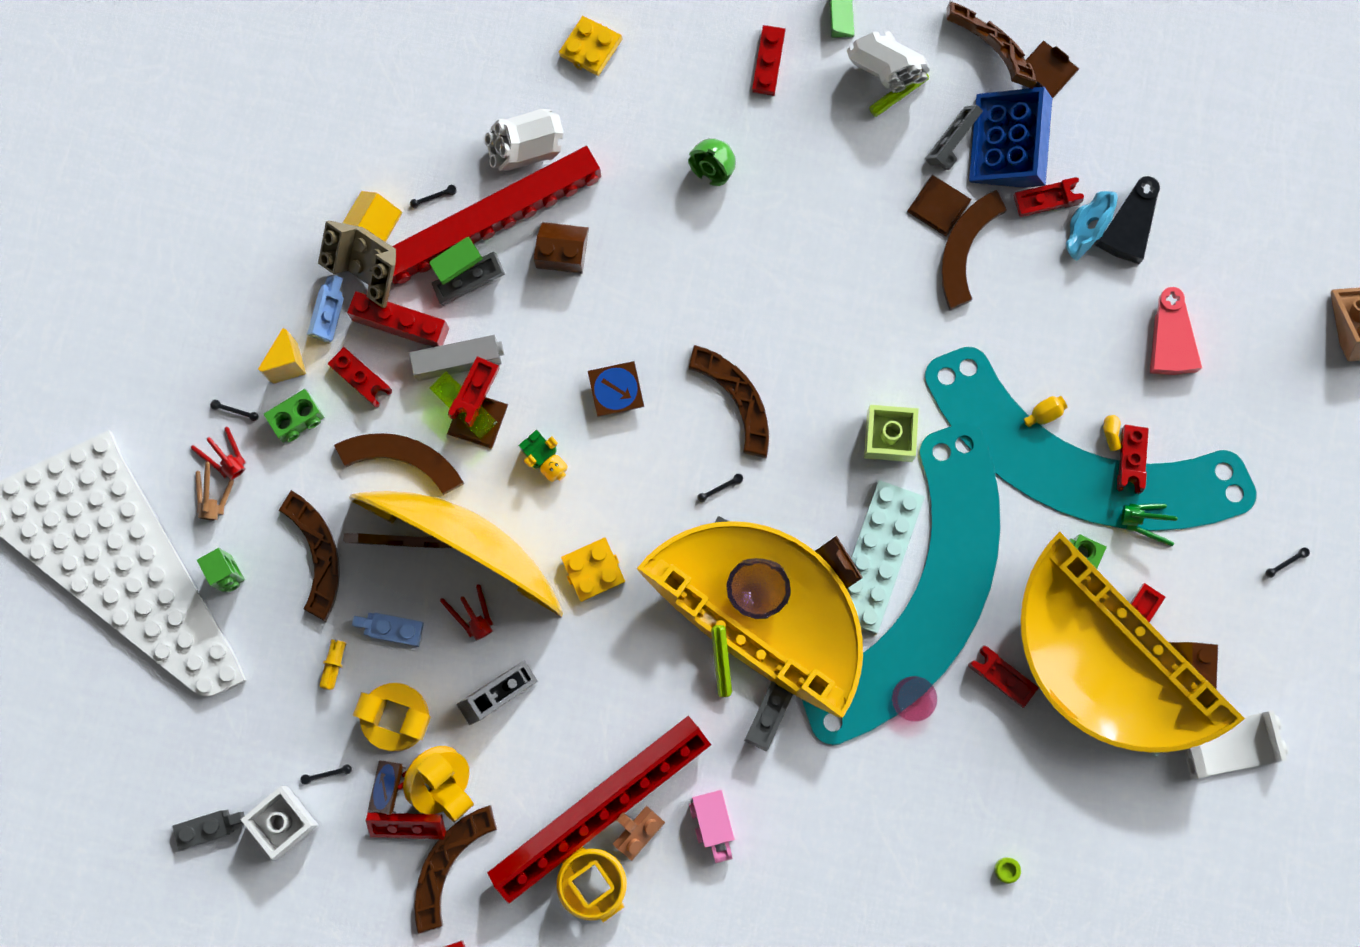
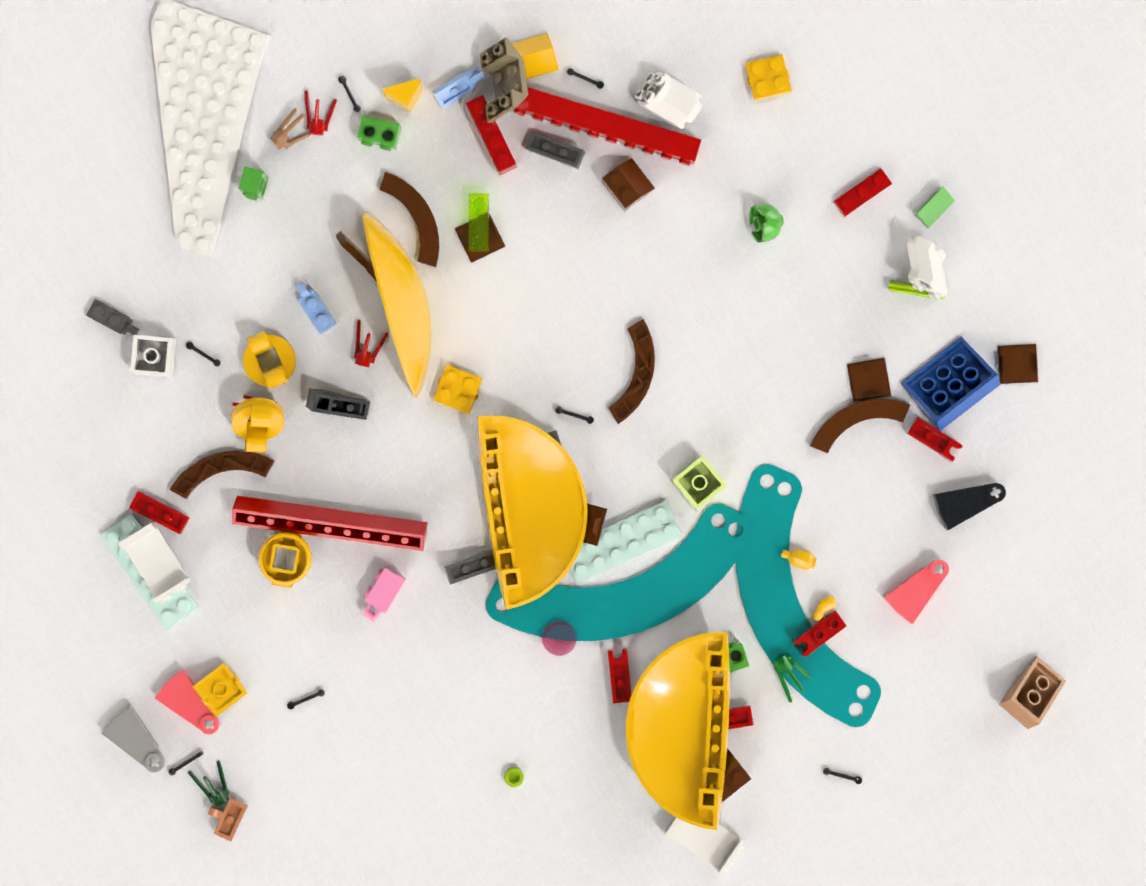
camera: 45 degrees right, 10 degrees up
(323, 553) = (319, 228): reddish brown tile -> none
(332, 664) = (264, 297): yellow axle -> none
(358, 376) = (438, 144): red plate -> none
(385, 787) = (227, 394): piece -> none
(405, 825) = (218, 426): red plate -> none
(454, 357) = (502, 190): light grey brick -> none
(455, 260) = (557, 133): bright green slope -> none
(474, 390) = (492, 222): red plate -> none
(542, 455) = (494, 297): piece -> none
(615, 389) = (573, 300): piece -> none
(637, 832) = (338, 556): nougat plate -> none
(721, 661) = (475, 511): lime axle -> none
(758, 588) = (534, 493): cylinder -> none
(942, 152) = (904, 350): dark grey hinge -> none
(1007, 49) = (1007, 318): reddish brown tile -> none
(1081, 236) = (929, 481): medium azure piece -> none

